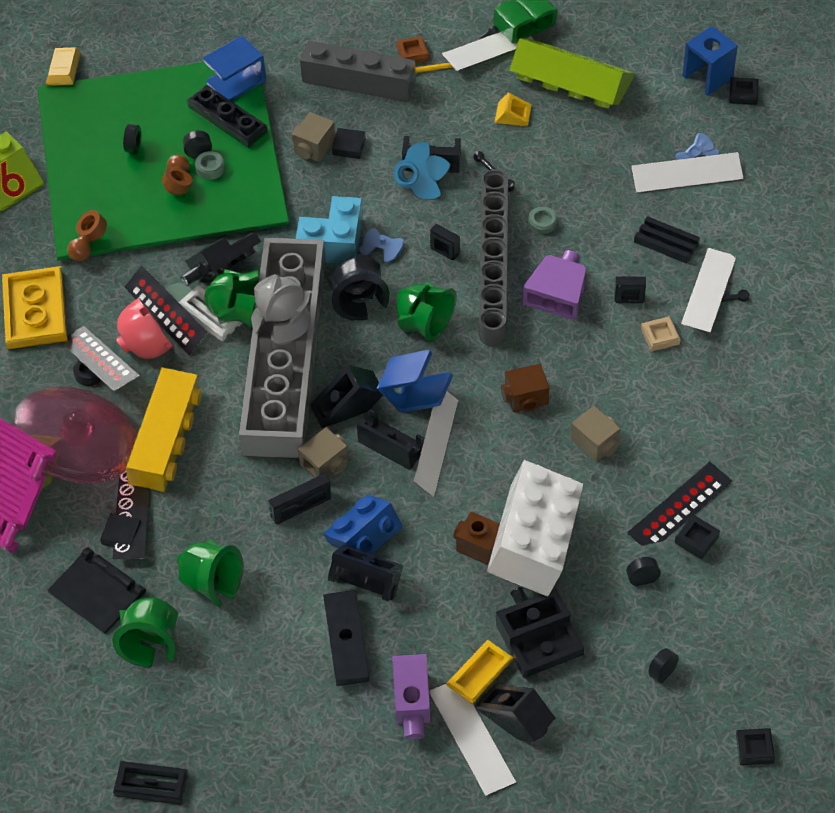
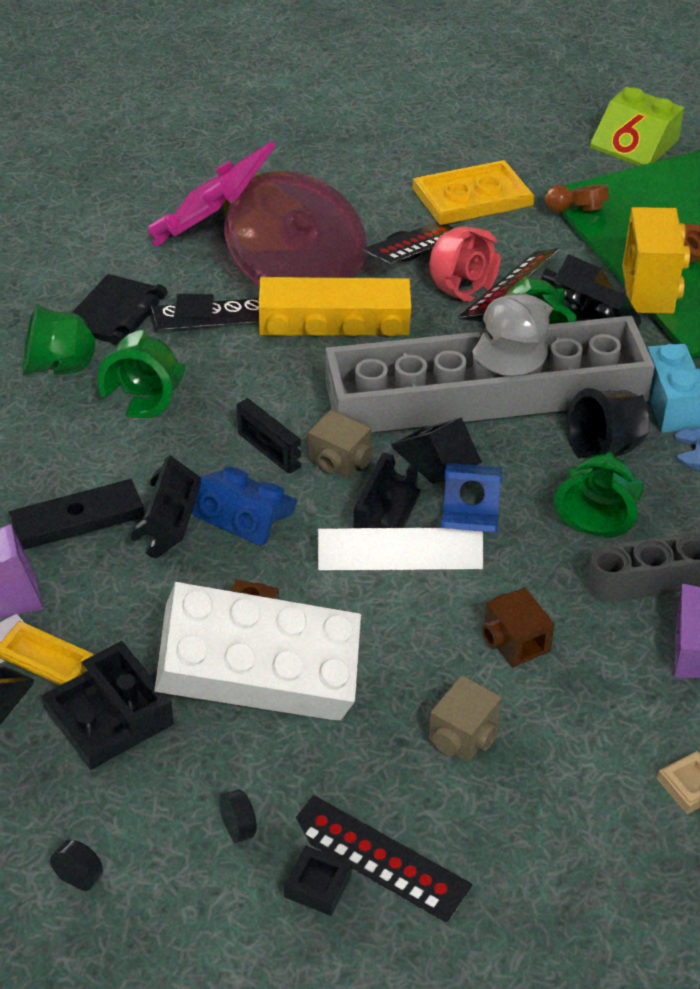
camera: 75 degrees right, 10 degrees down
(204, 206) = (655, 259): none -> yellow brick

